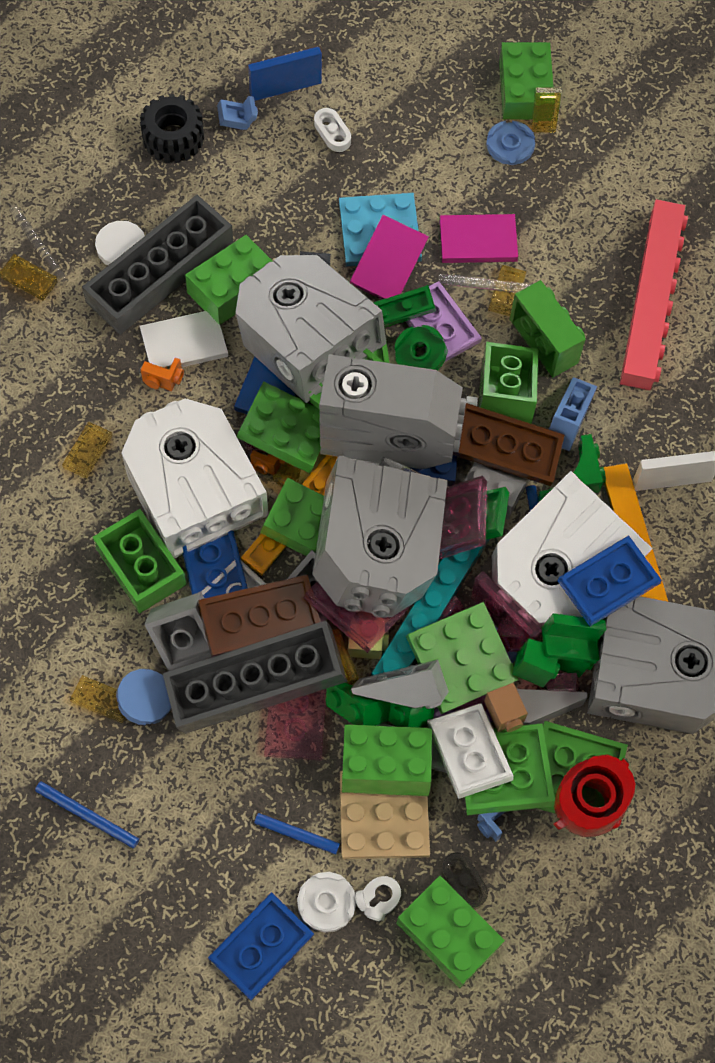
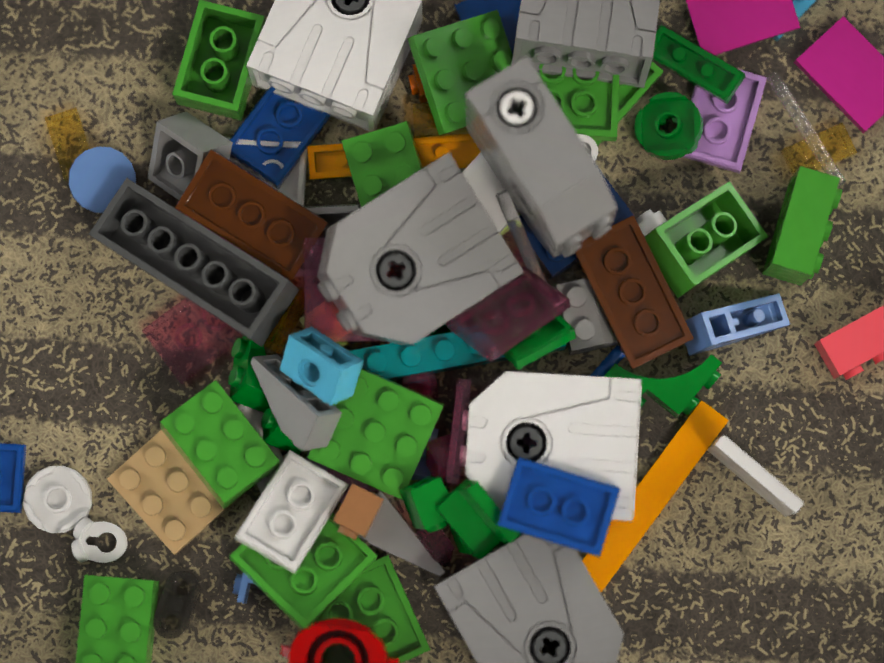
camera: 55 degrees right, 15 degrees up
(297, 833) = (96, 421): blue bar -> none
(407, 635) = (321, 365): none -> medium azure brick

